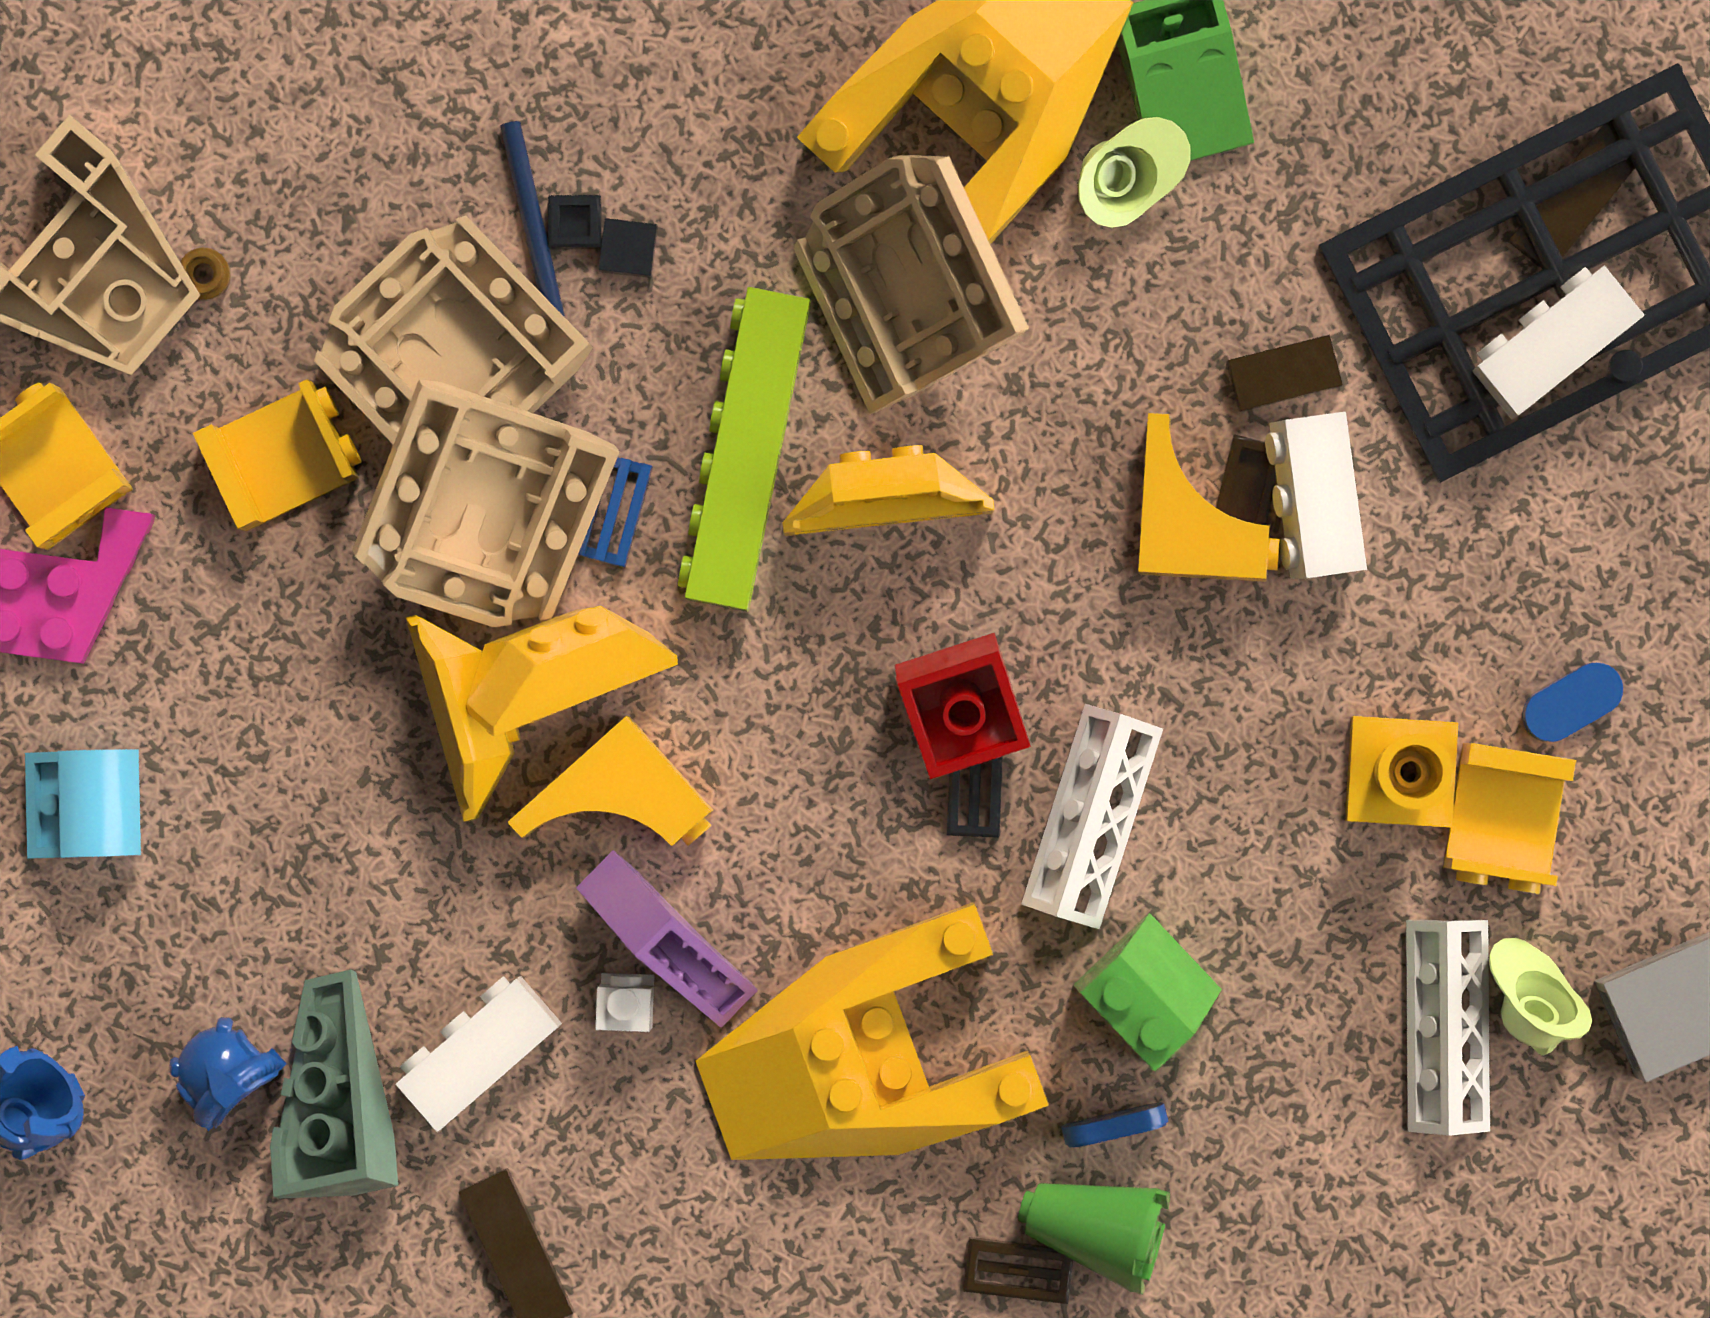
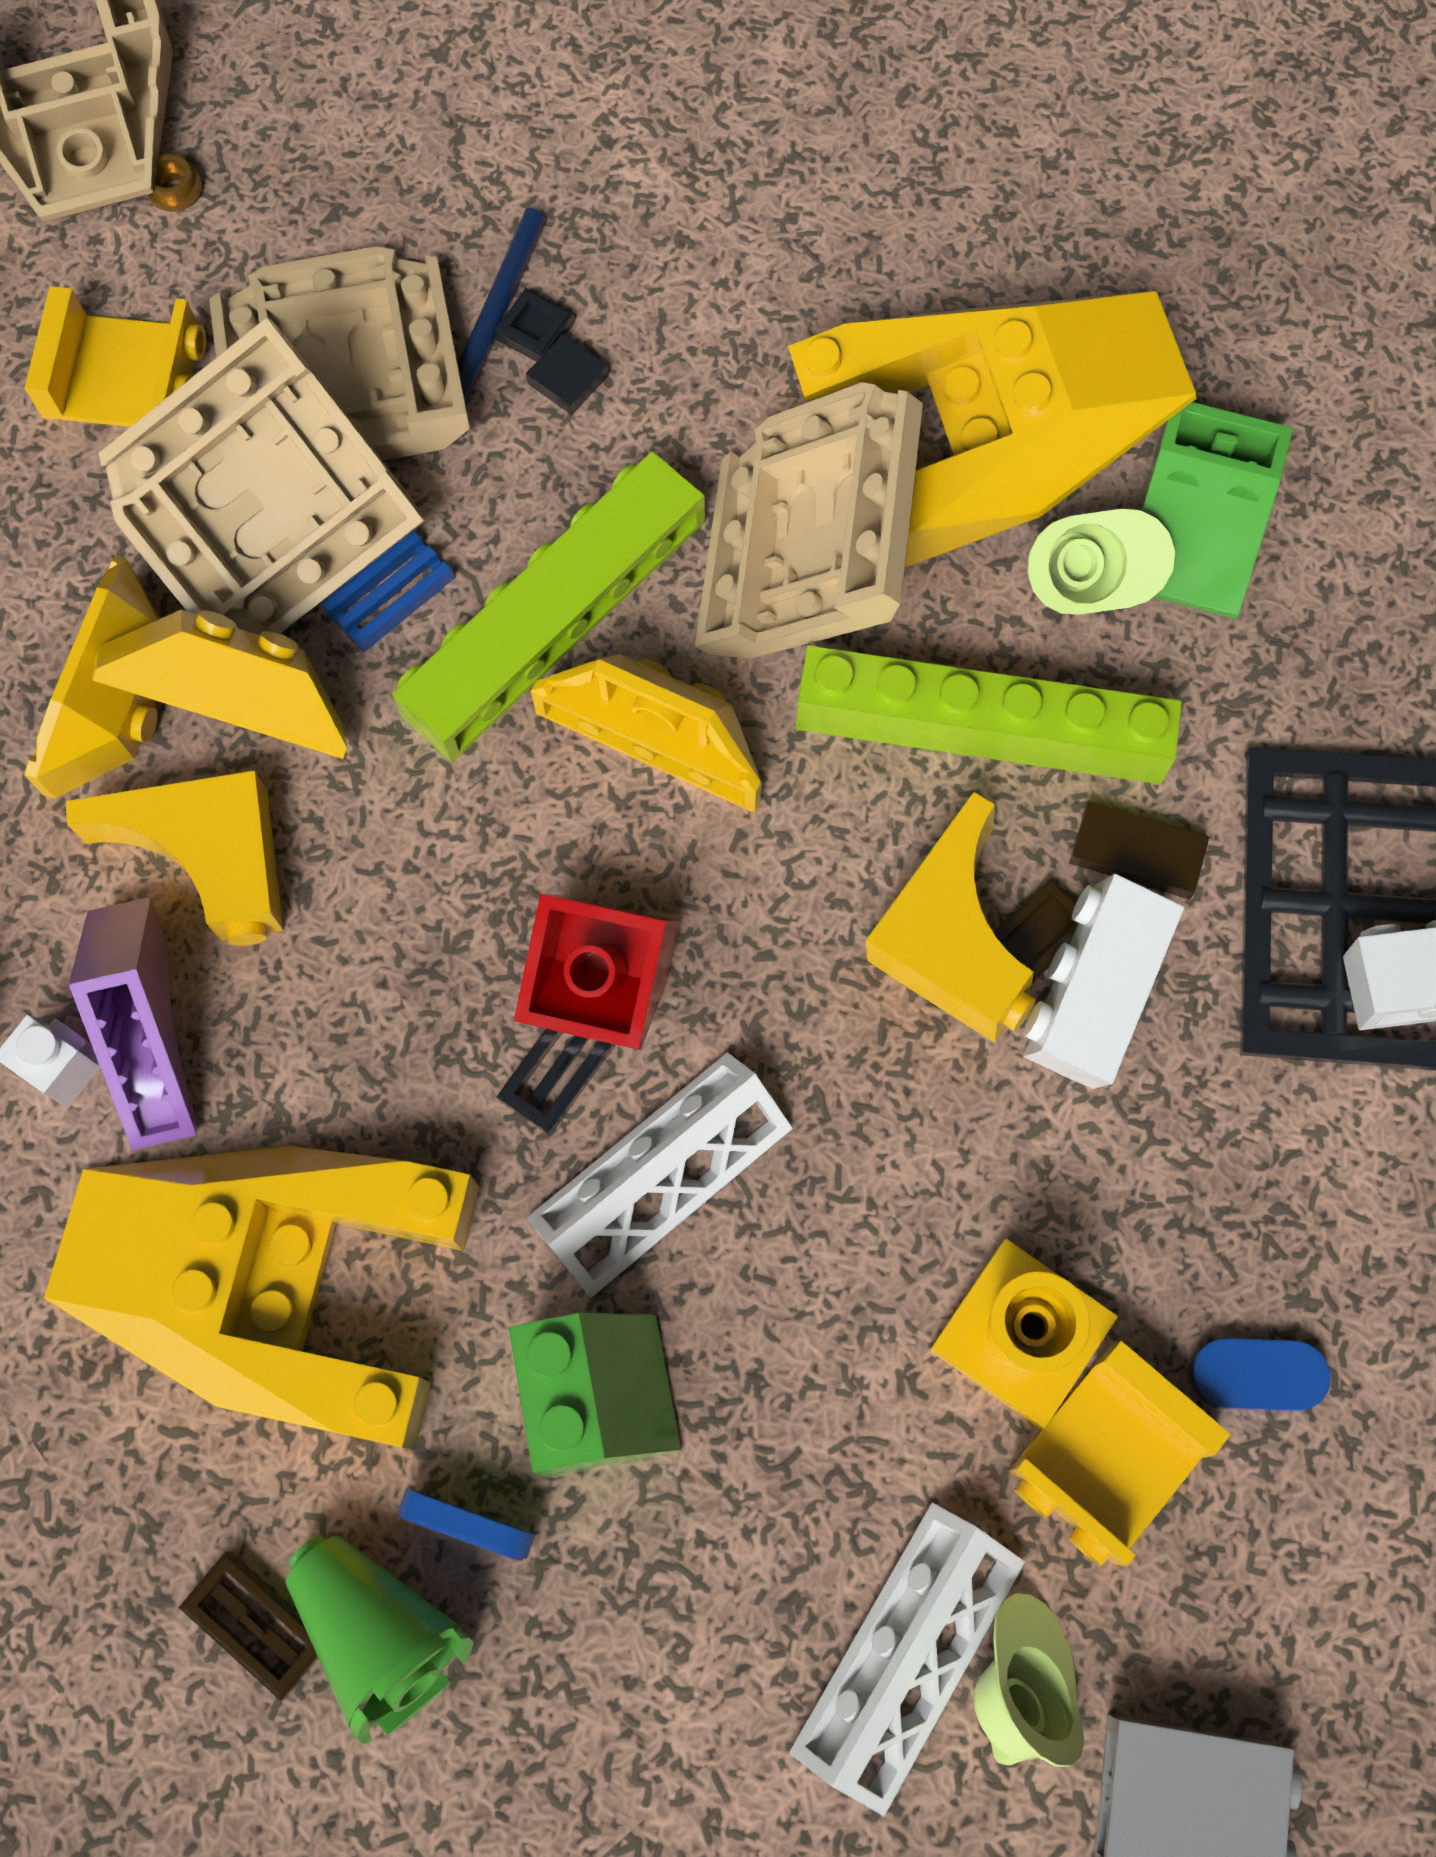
camera: 30 degrees right, 15 degrees down
(1119, 342) = (988, 715): none -> lime brick

